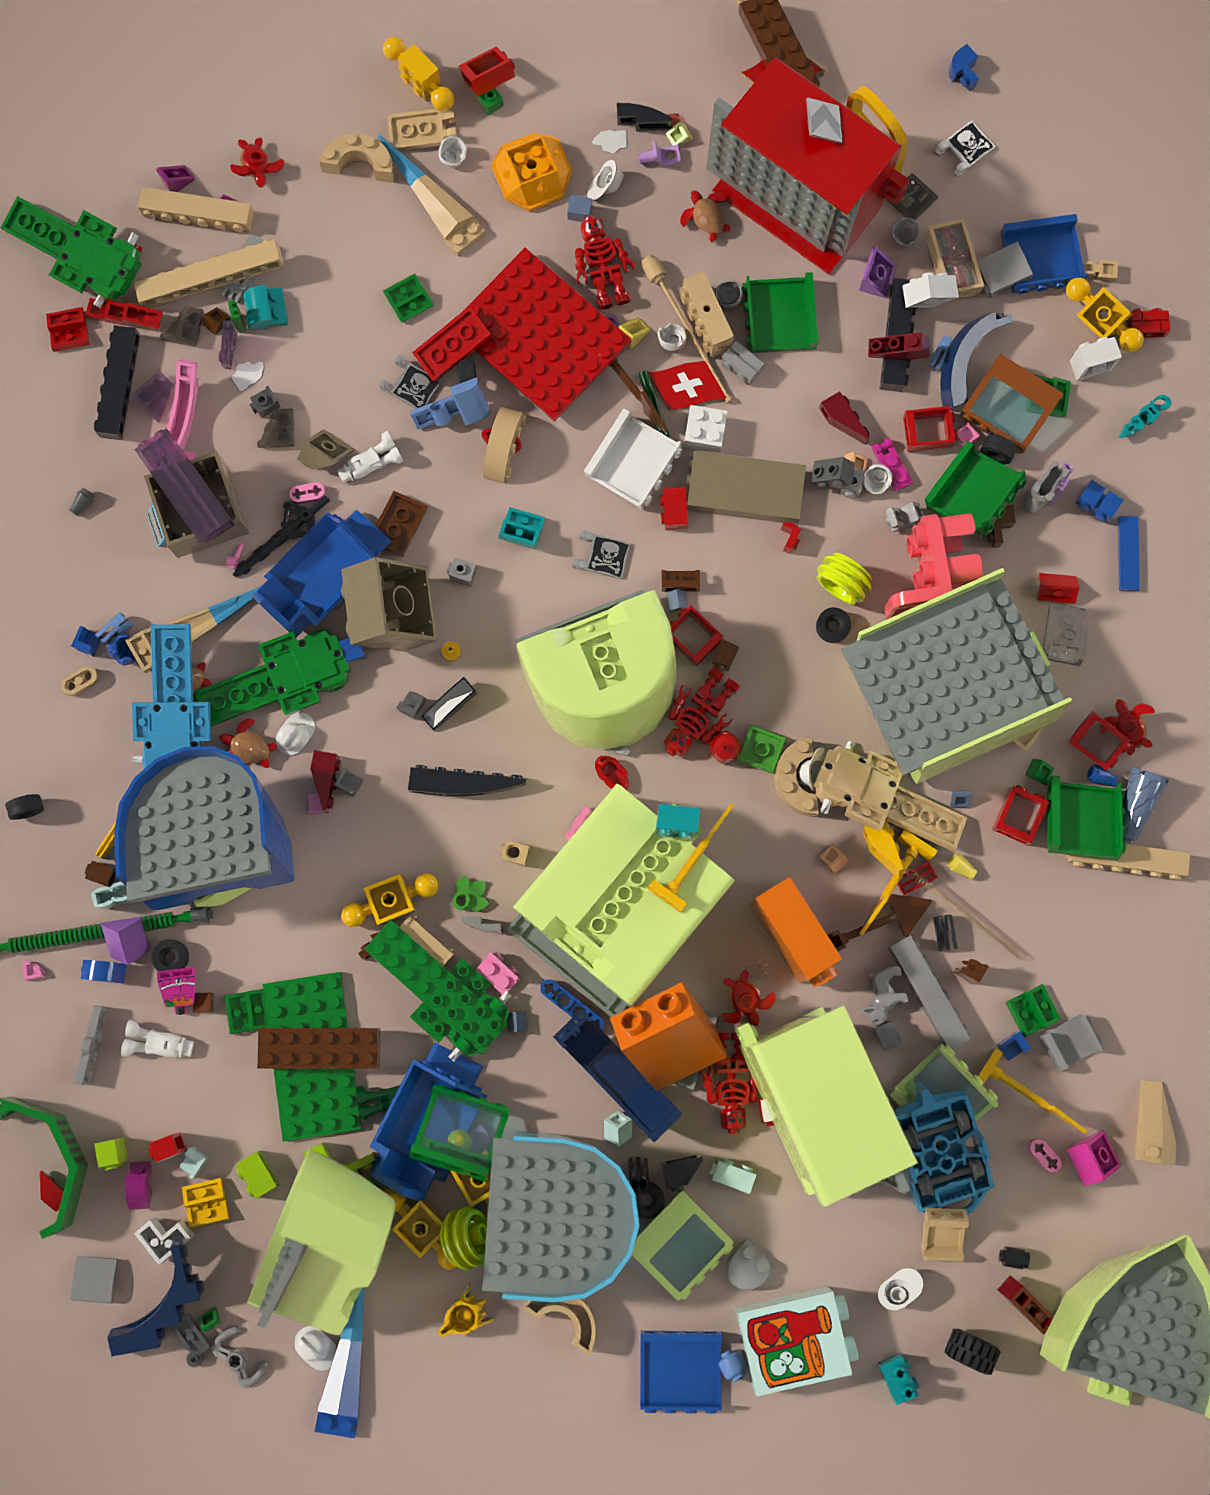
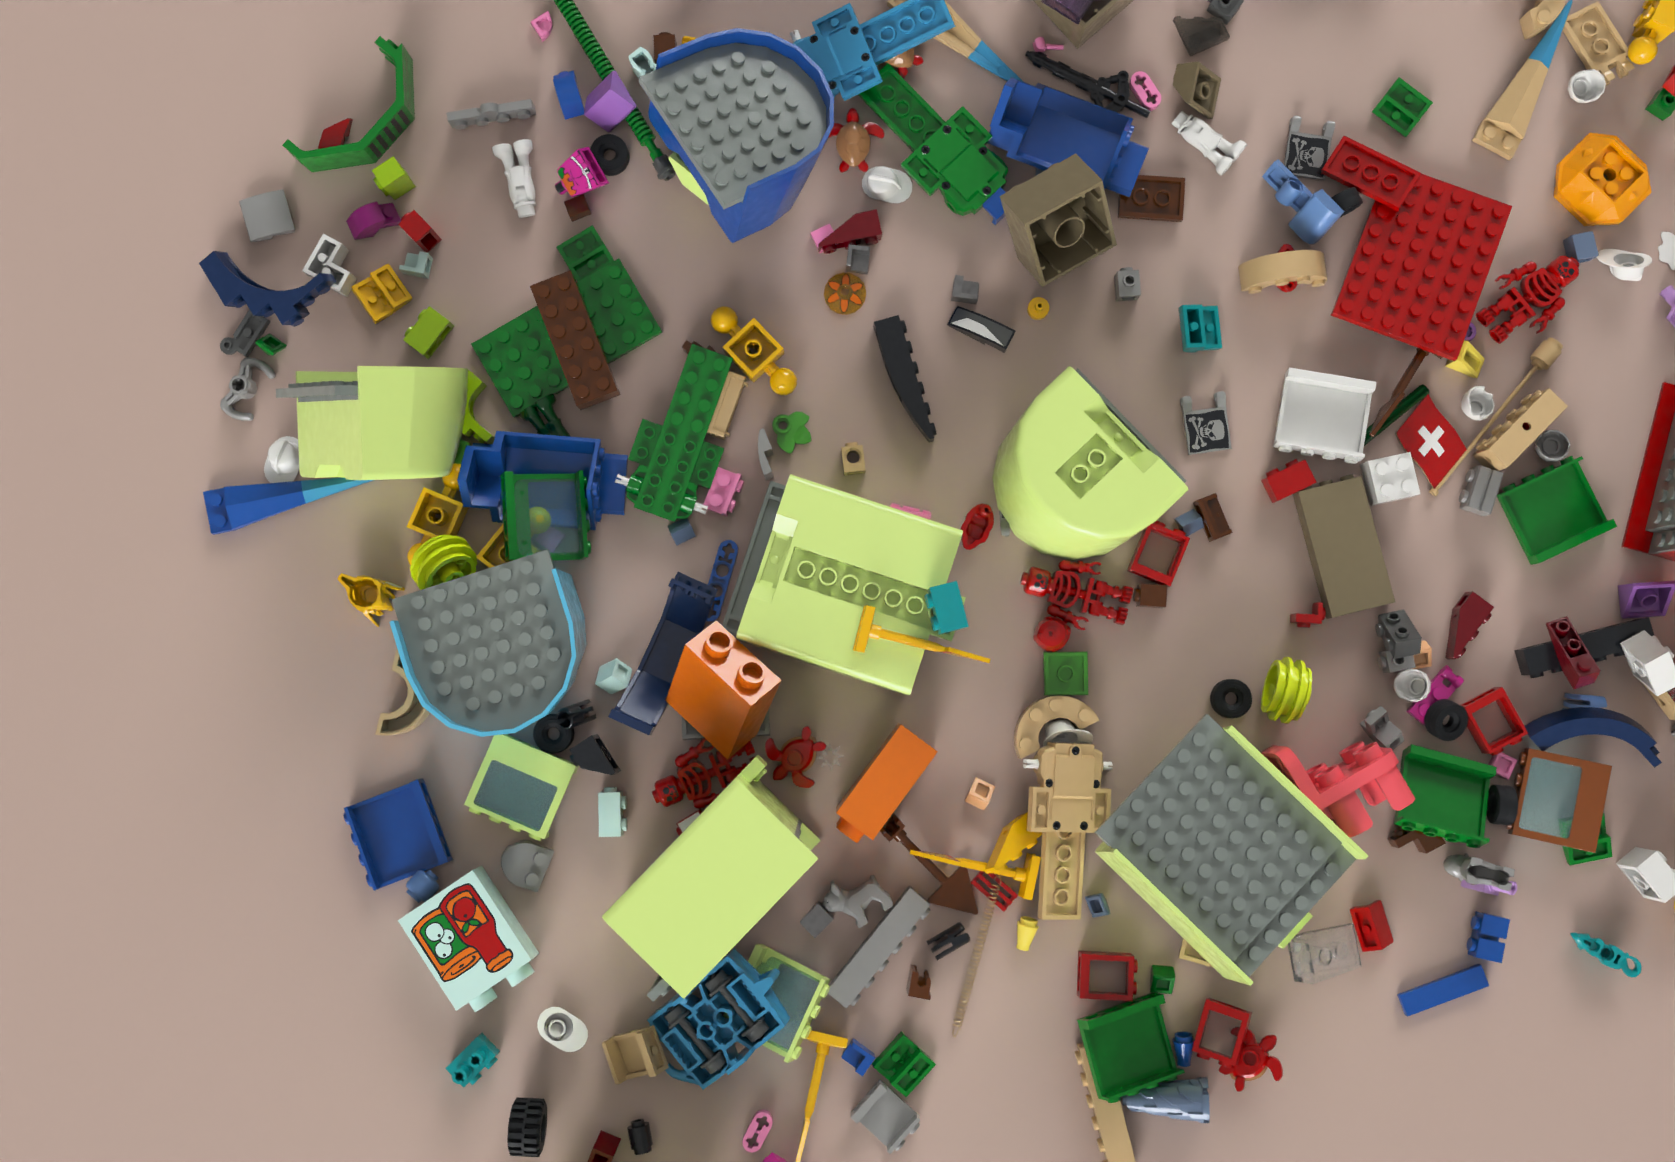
camera: 70 degrees right, 5 degrees up
(378, 812) = (842, 303): none -> clear yellow dish
(706, 214) = (1633, 386): animal -> none
(907, 468) = (1454, 727): none -> black tyre

